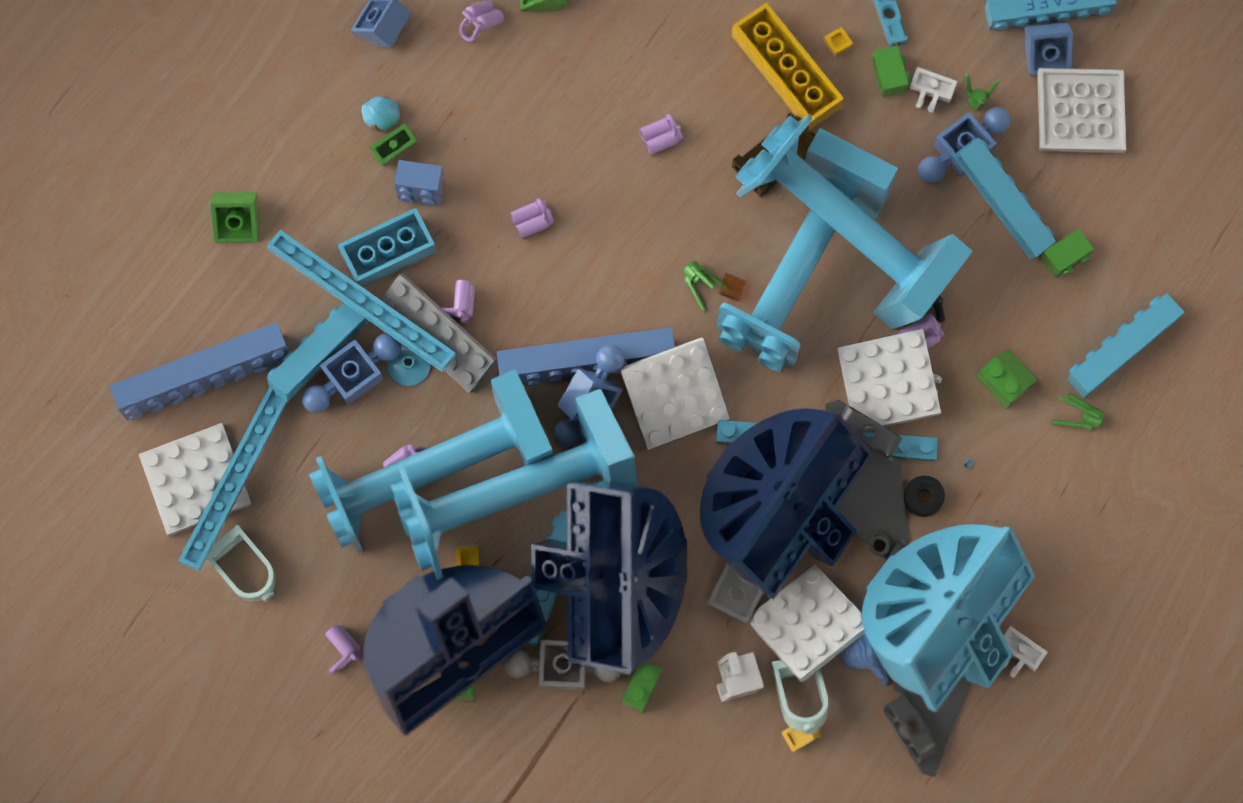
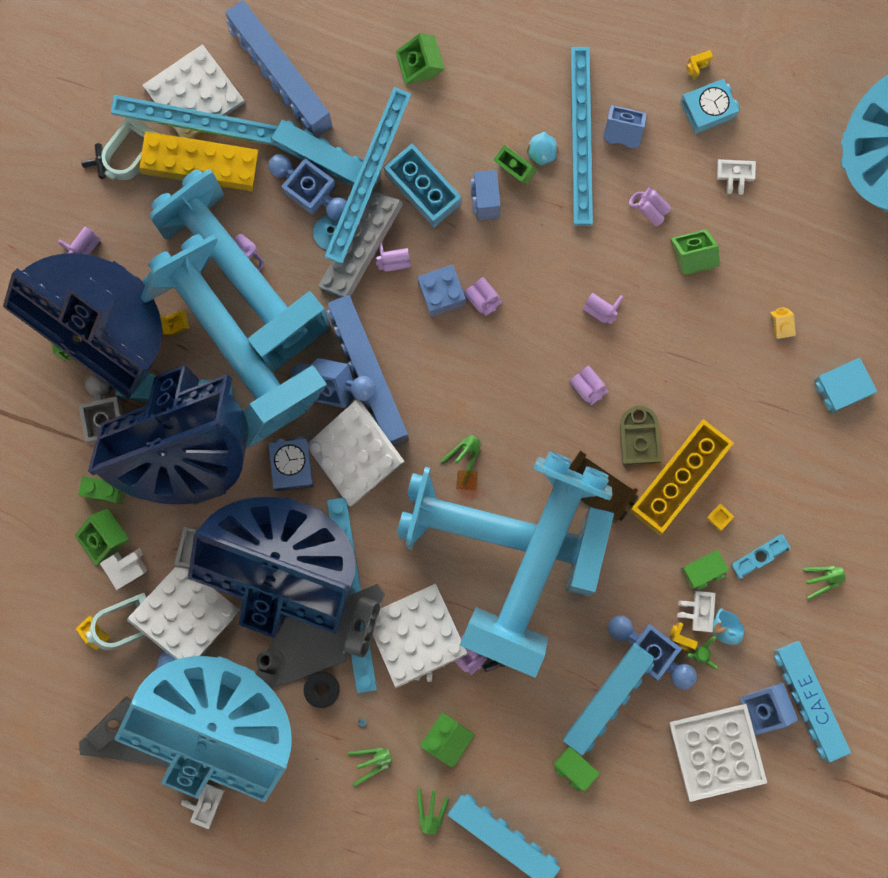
camera: 80 degrees right, 5 degrees up
(244, 607) = (96, 161): none -> black piece
(285, 486) = (178, 156): none -> yellow brick
(378, 69) = (581, 136): none -> medium azure plate
(513, 259) = (441, 290): none -> medium blue brick
(582, 98) = (601, 309): none -> lavender piece
(666, 468) = (290, 464): none -> medium blue brick
(695, 699) = (101, 536): none -> bright green slope
(732, 99) = (640, 438): none -> olive tile
(949, 117) = (684, 642): none -> yellow bracket
(956, 64) = (728, 628): none -> medium azure hair
(1013, 450) = (381, 758): none -> bright green plant

